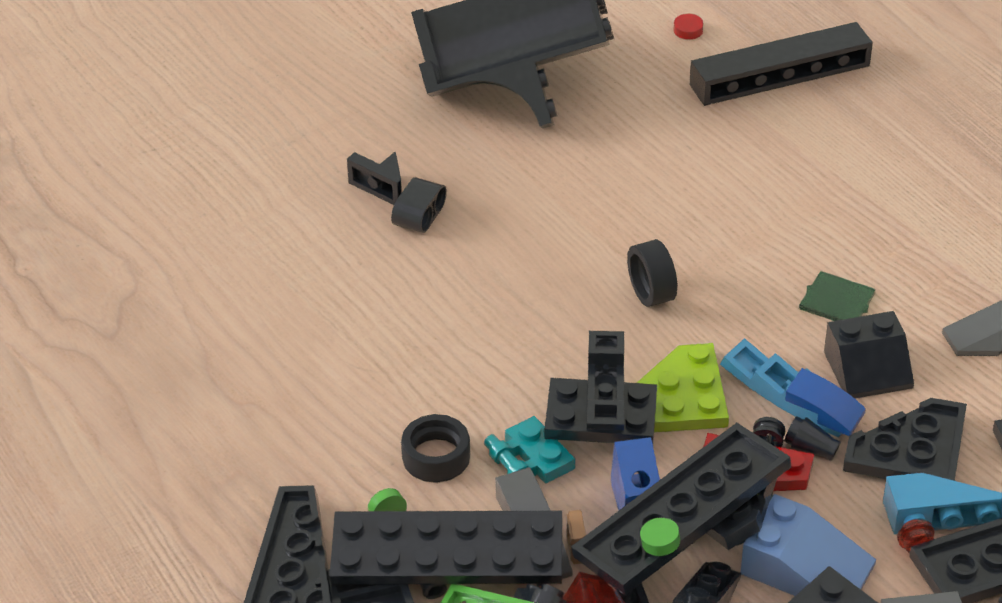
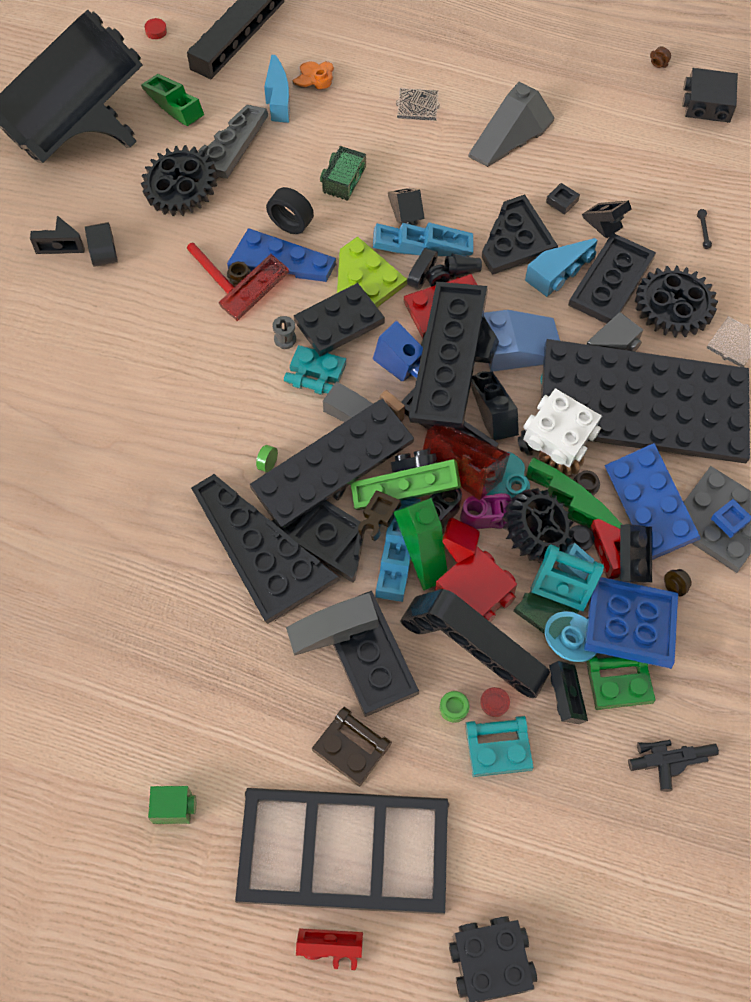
camera: 40 degrees left, 20 degrees up
(435, 428) = (257, 385): black tyre -> none
(515, 292) = (210, 267): none -> red bar
(529, 393) = (280, 334): none -> dark grey bush
(540, 309) = (237, 272): none -> dark brown plate
(541, 331) = (253, 287): none -> clear red tile
(562, 184) = (179, 180): none -> black gear
(595, 307) = (299, 260): none -> blue wing
(605, 380) = (336, 302): black slope -> none
(637, 104) = (173, 99): none -> green slope
(659, 176) = (234, 140): none -> dark grey wing
(660, 536) = (460, 380): bright green tile -> none
(760, 269) = (343, 172): none -> clear green brick
(763, 150) = (277, 91): none -> dark azure slope
(766, 406) = (425, 261): none -> black beam
(801, 341) = (407, 205): none -> black slope
(829, 155) = (315, 74): none -> orange plate
(832, 404) = (457, 236): blue slope -> none
(836, 297) = (397, 167): clear green piece -> none
(869, 354) = (449, 194): black slope -> none
(914, 533) = (565, 291): clear red plate -> none
(930, 245) = (417, 104): none -> clear piece

